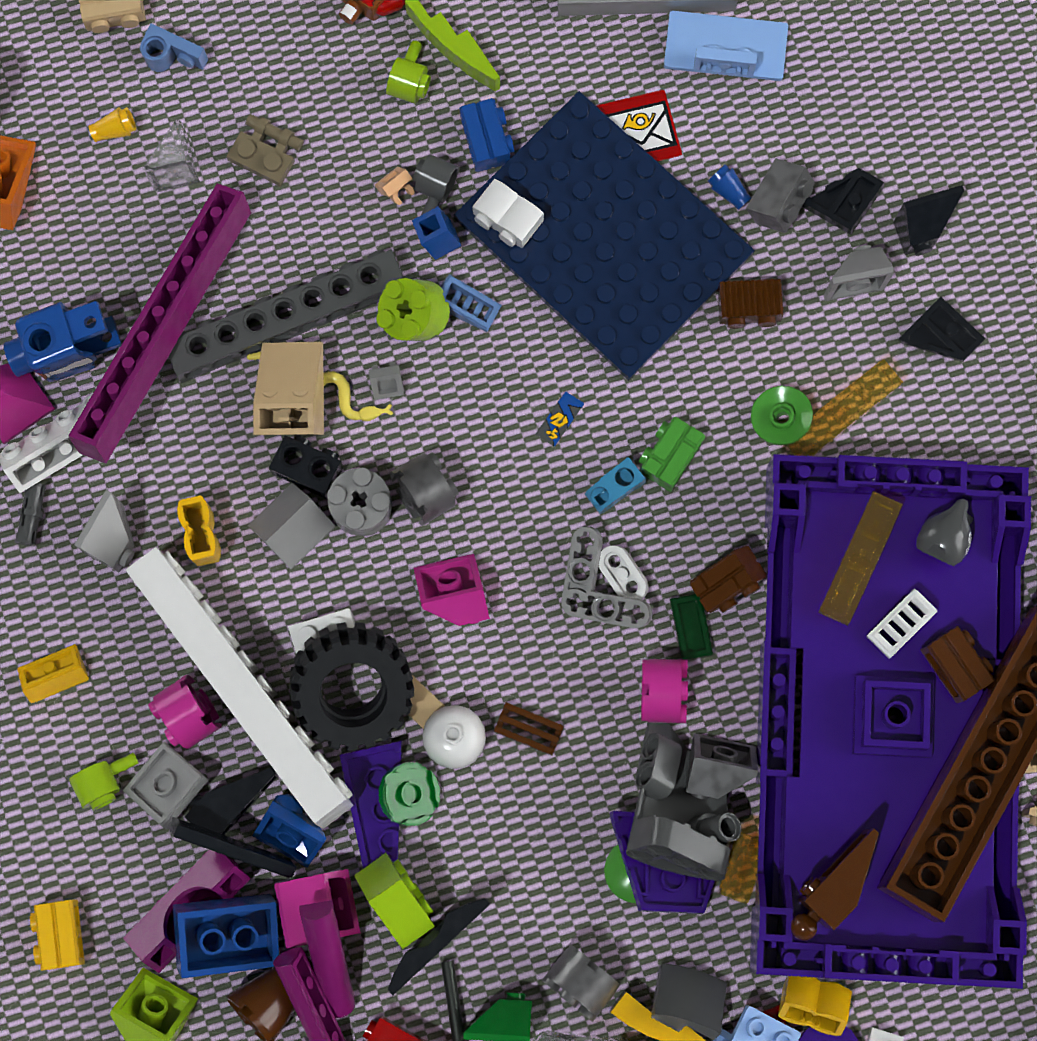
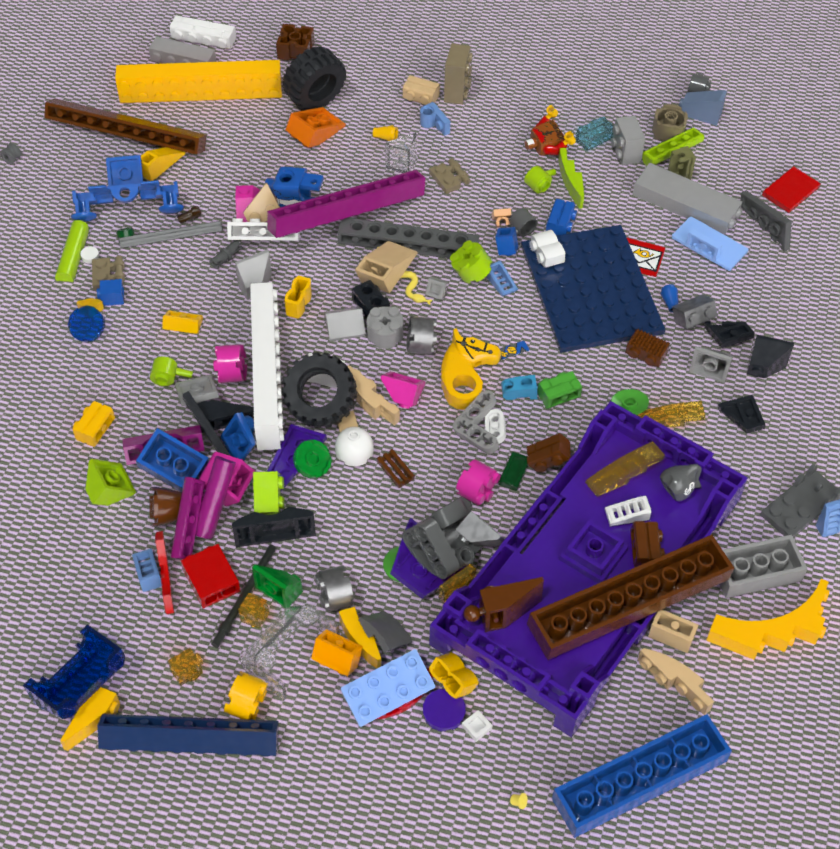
camera: 30 degrees right, 25 degrees down
(31, 400) = (261, 204): none -> tan wing
(405, 631) = (372, 401): none -> tan slope
(501, 488) = (459, 366): none -> yellow animal

